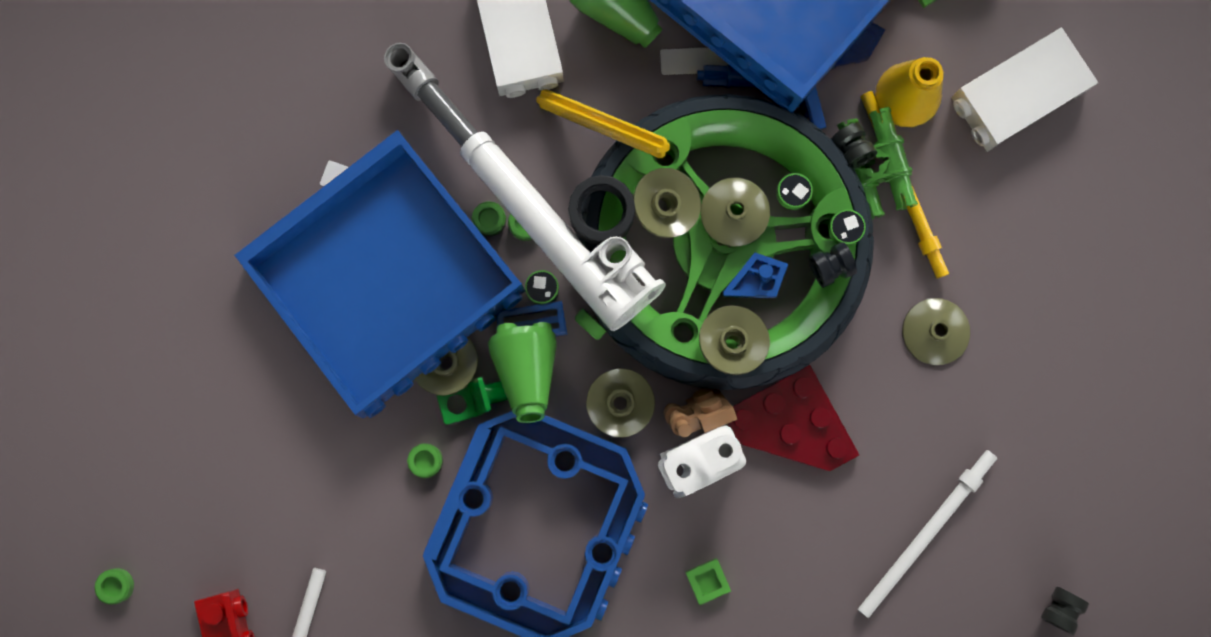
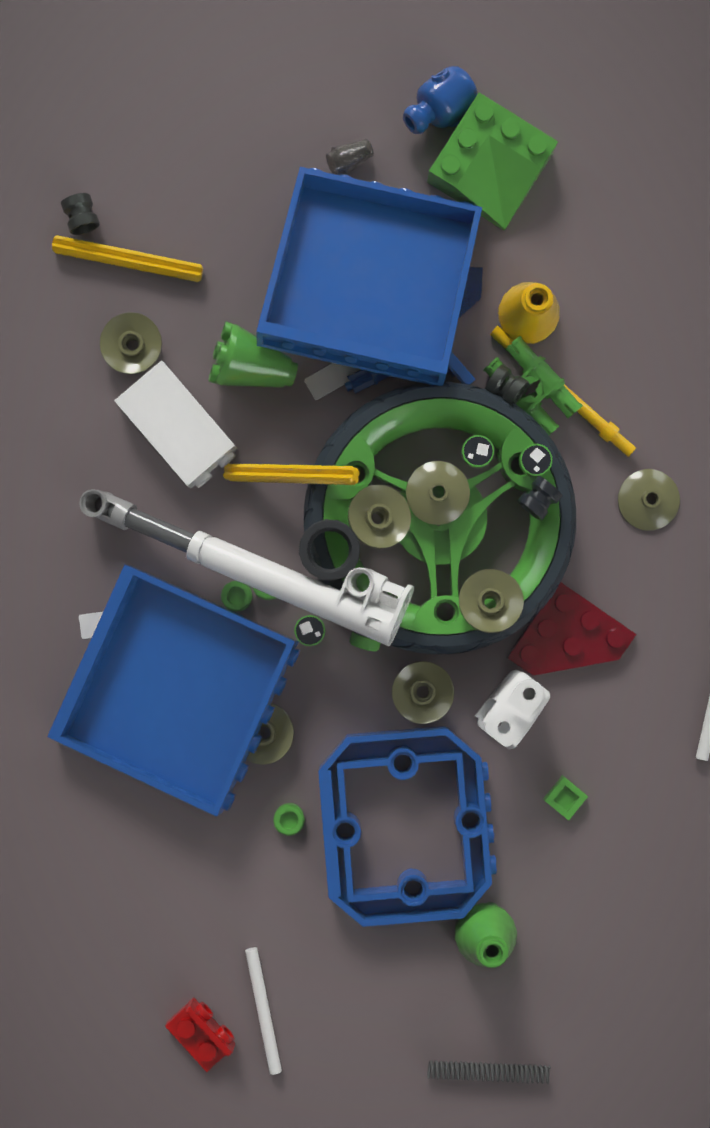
camera: 20 degrees left, 5 degrees up
(114, 586) = (94, 1047): bright green tile -> none
(477, 399) = (306, 748): green bracket -> none
(525, 367) = (332, 706): bright green cone -> none
(561, 331) = (337, 648): blue tile -> none
(703, 411) = (494, 666): medium nougat plate -> none
(758, 278) = (484, 539): blue piece -> none
(1023, 89) = (622, 261): white panel -> none

